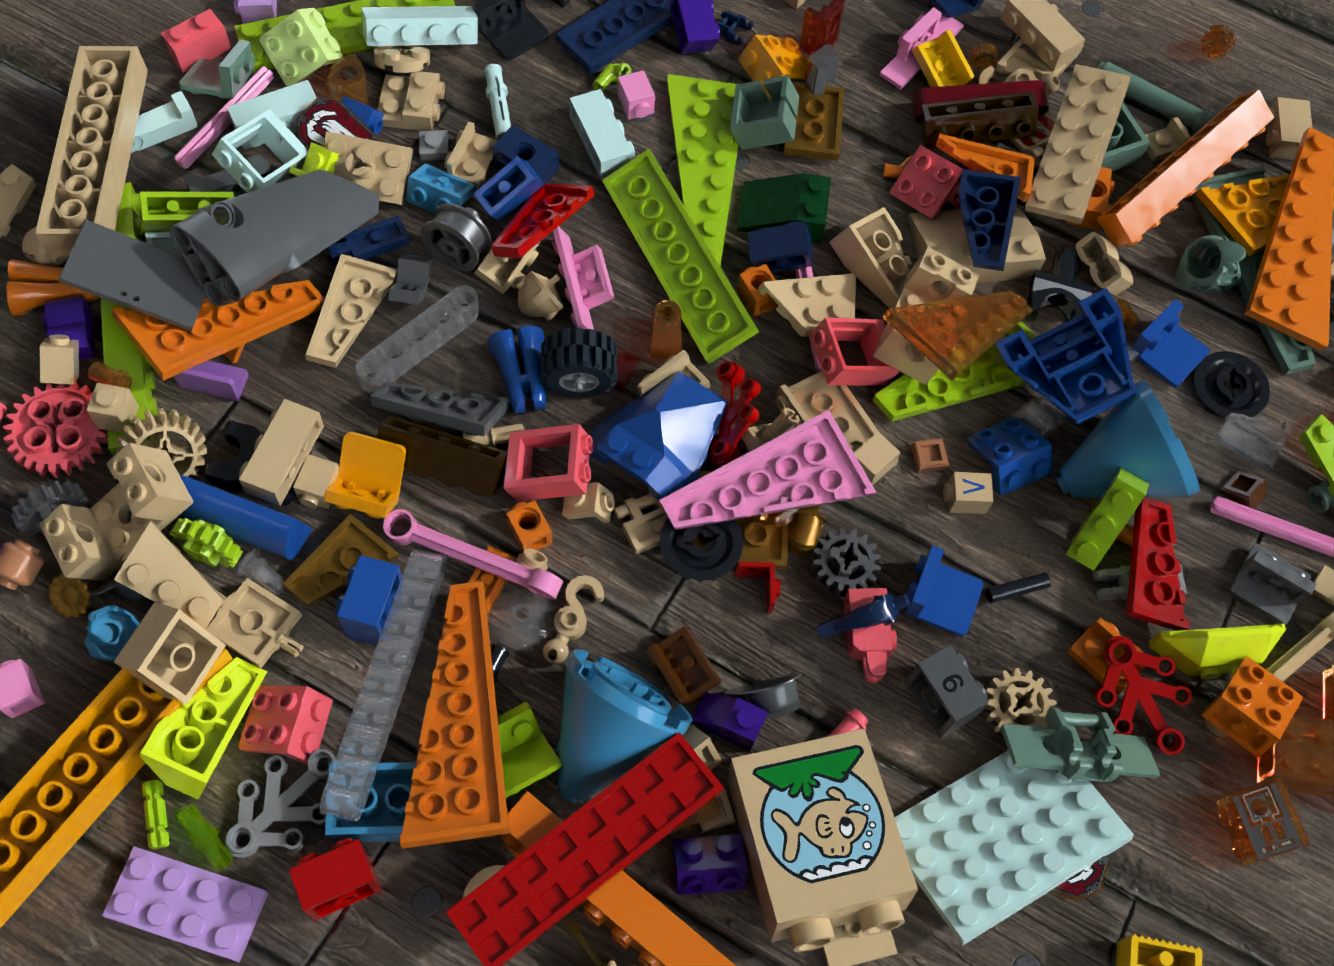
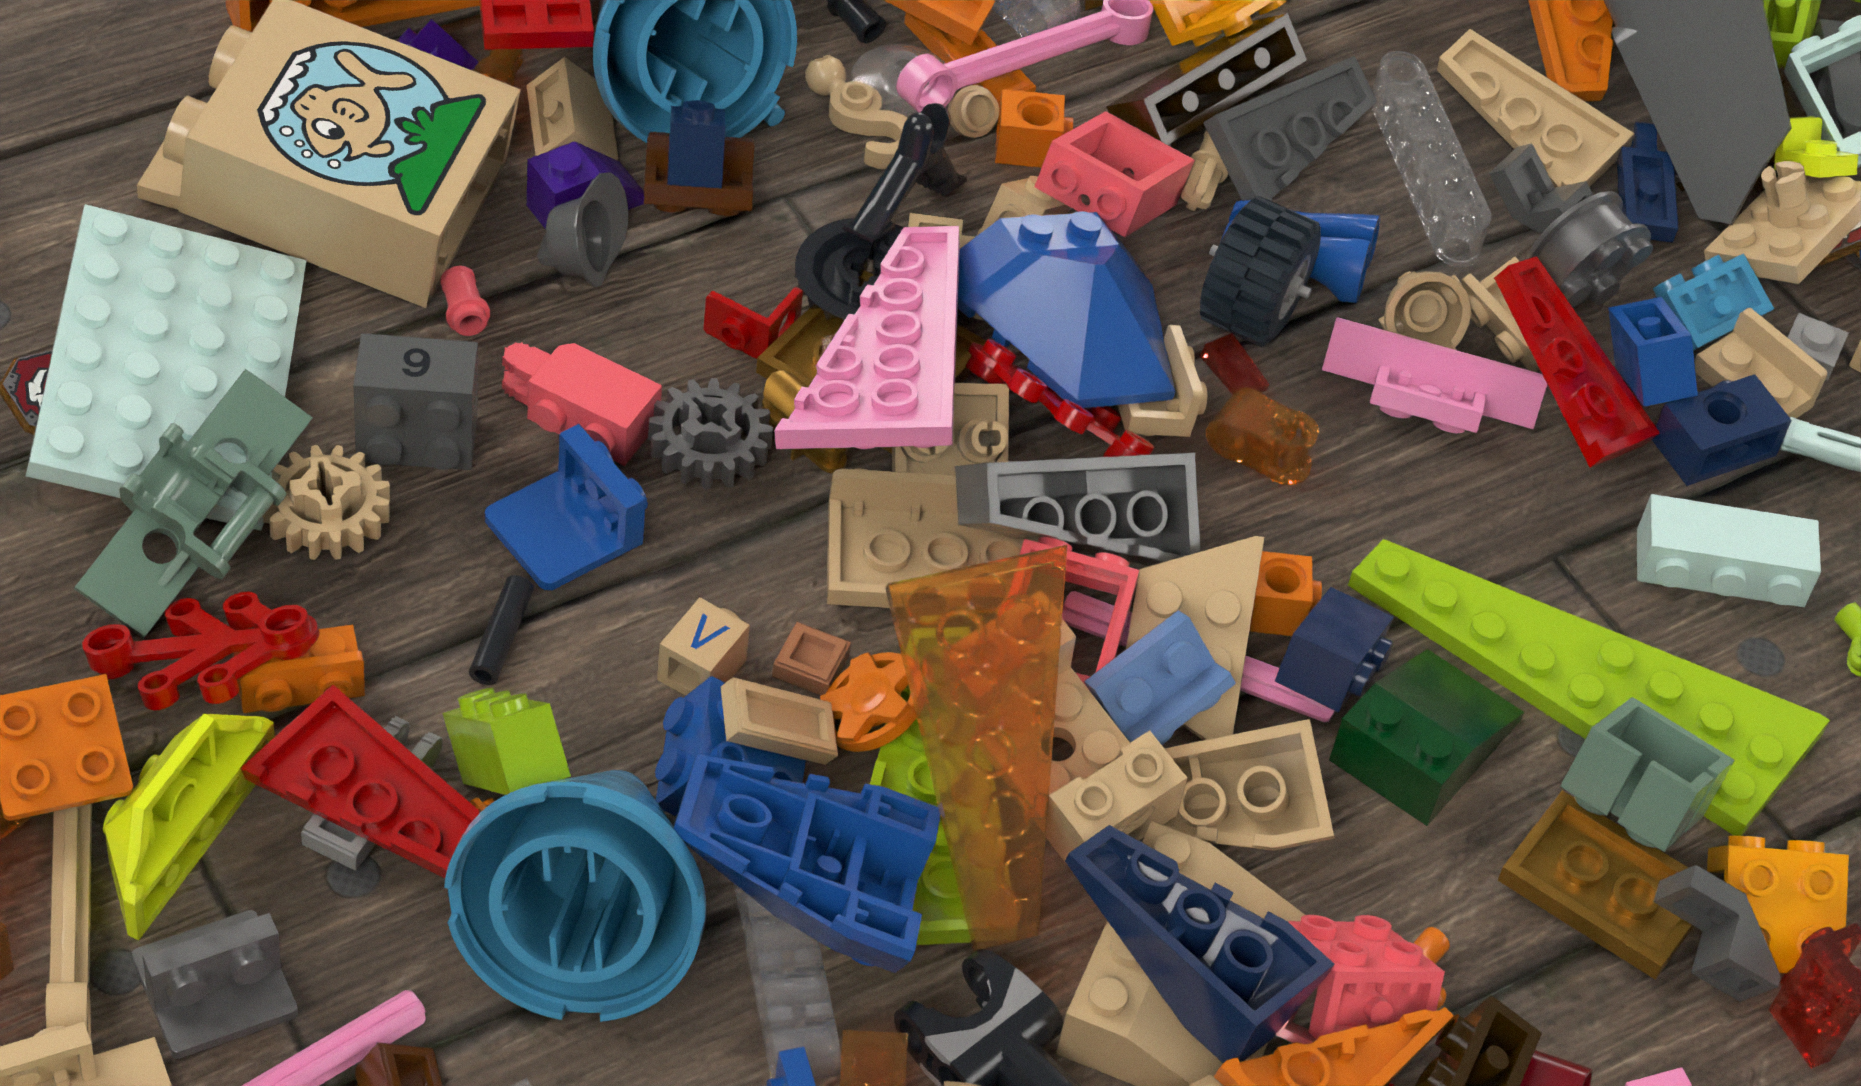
camera: 120 degrees right, 15 degrees down
(632, 541) = (917, 160): none -> black piece
(636, 95) = (1794, 642): bright pink brick -> none
(680, 256) = (1416, 517): lime plate -> none
(682, 663) = (696, 145): none -> dark blue brick
(796, 363) = (1101, 504): none -> dark grey wedge
(864, 290) = (1160, 681): none -> medium blue bracket
(875, 612) = (596, 369): dark blue animal -> none
(877, 457) = (846, 528): tan brick -> none
(943, 411) = (867, 697): none -> orange wheel
(992, 434) = (778, 721): none -> tan tile

